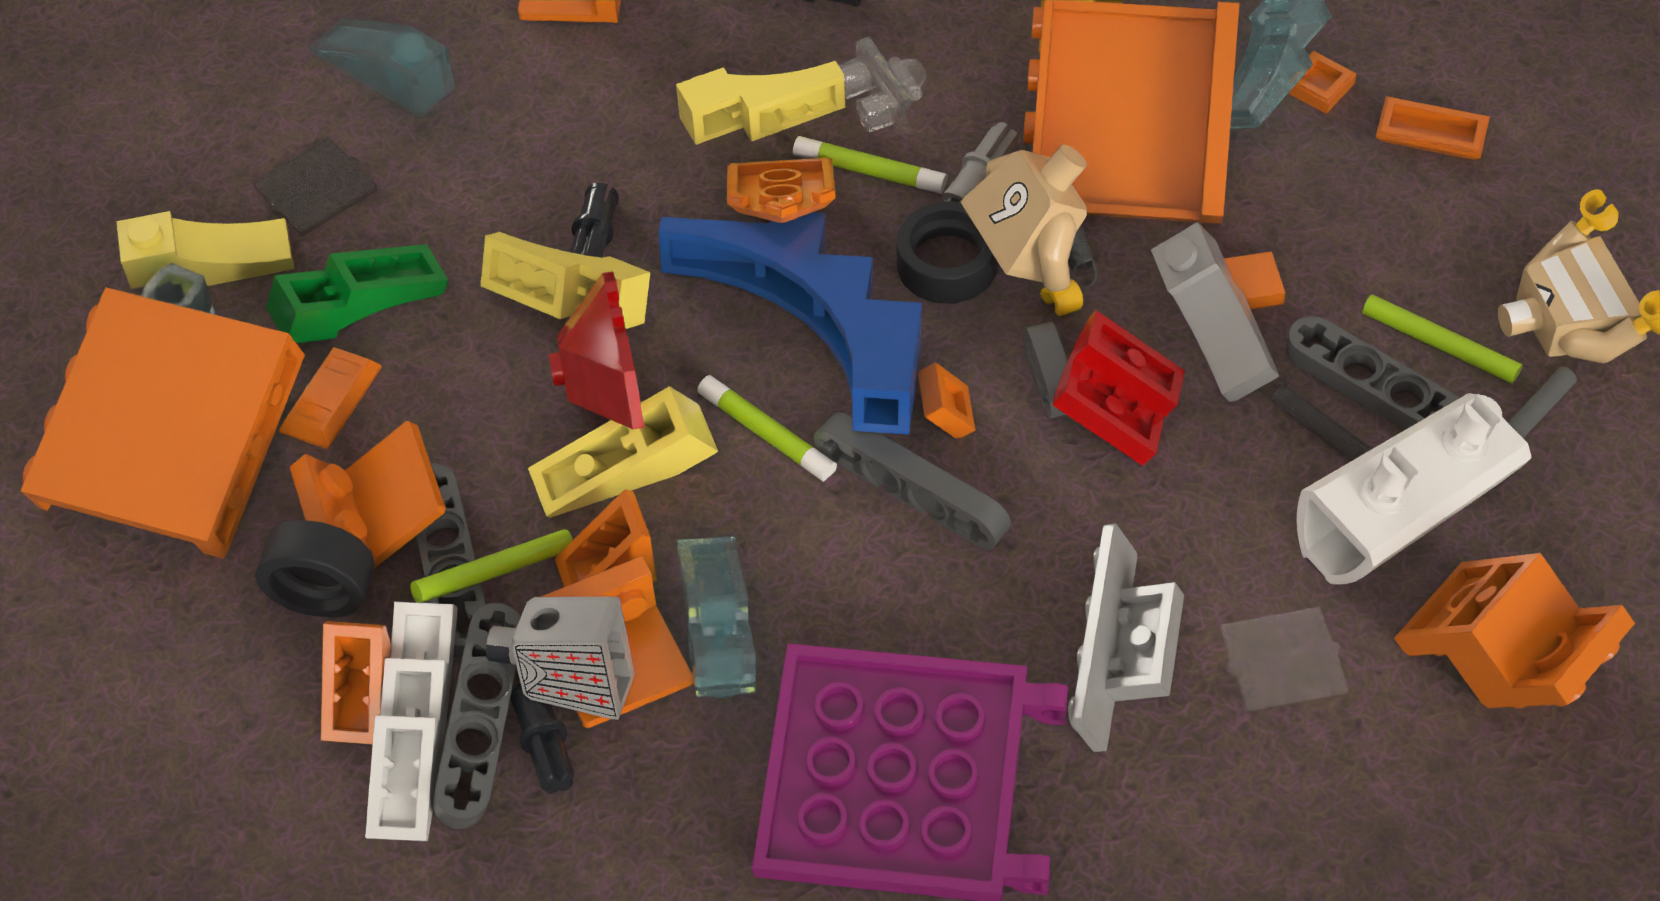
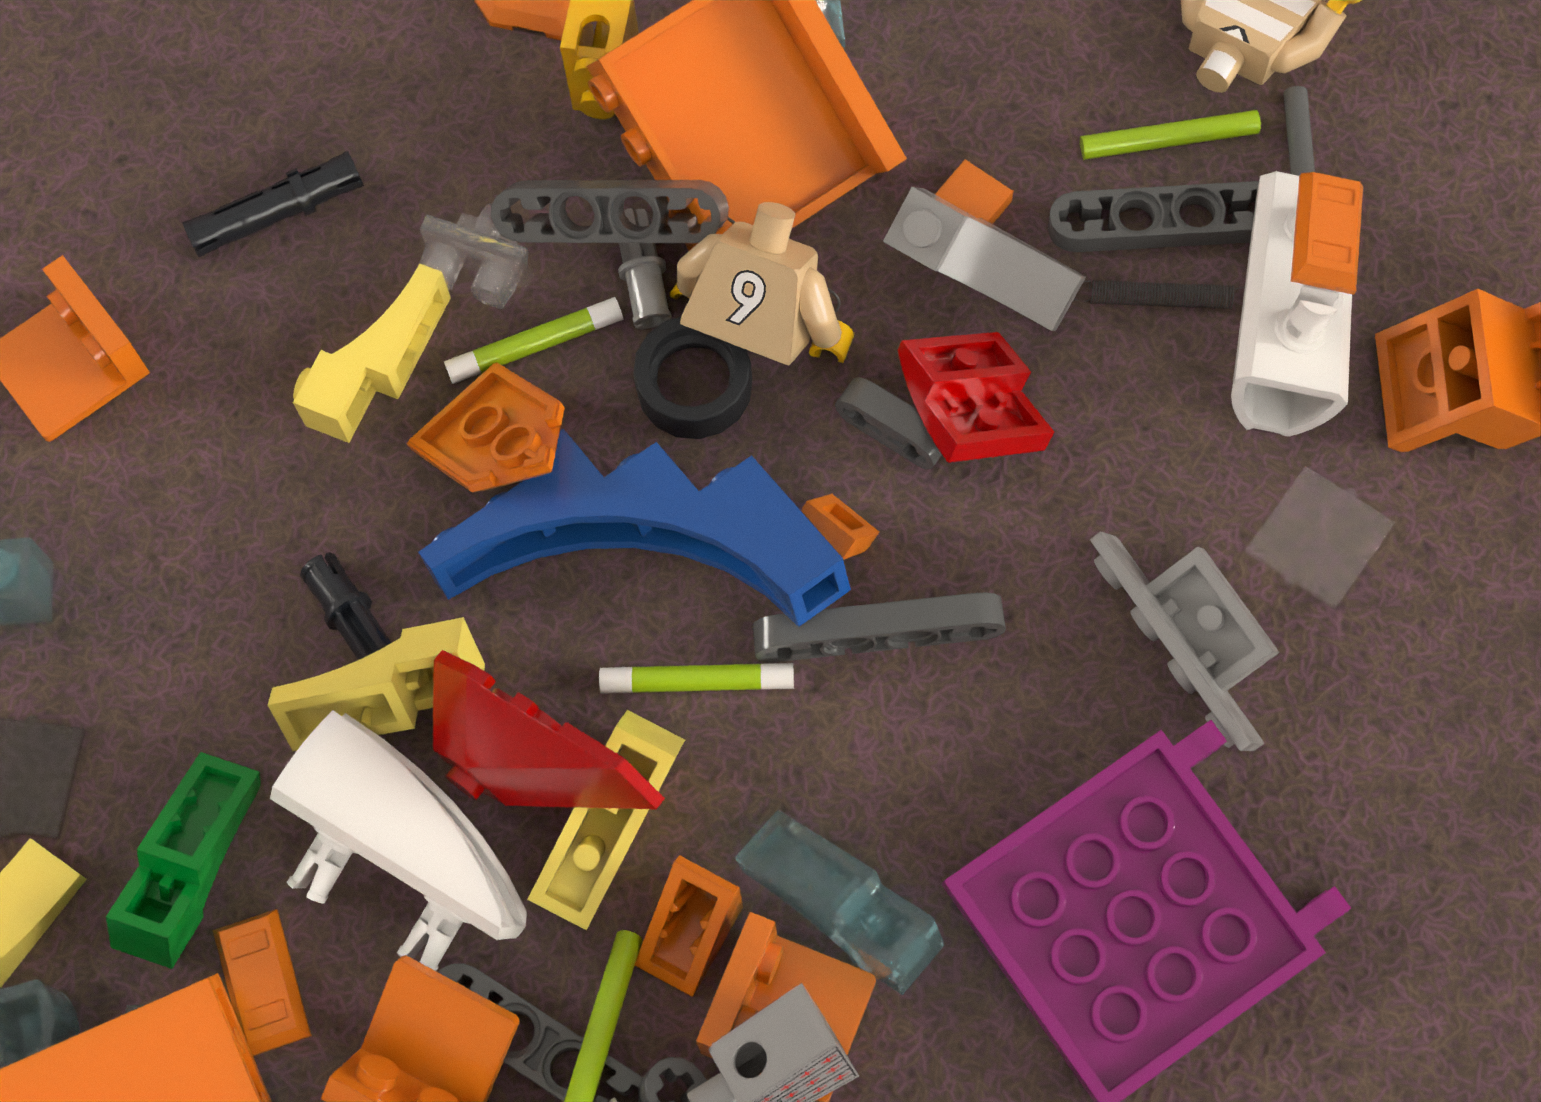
camera: 40 degrees left, 15 degrees up
(496, 362) = (390, 812): none -> white piece
(981, 102) = (607, 201): none -> dark grey beam
(1451, 428) = (1327, 232): none -> orange tile

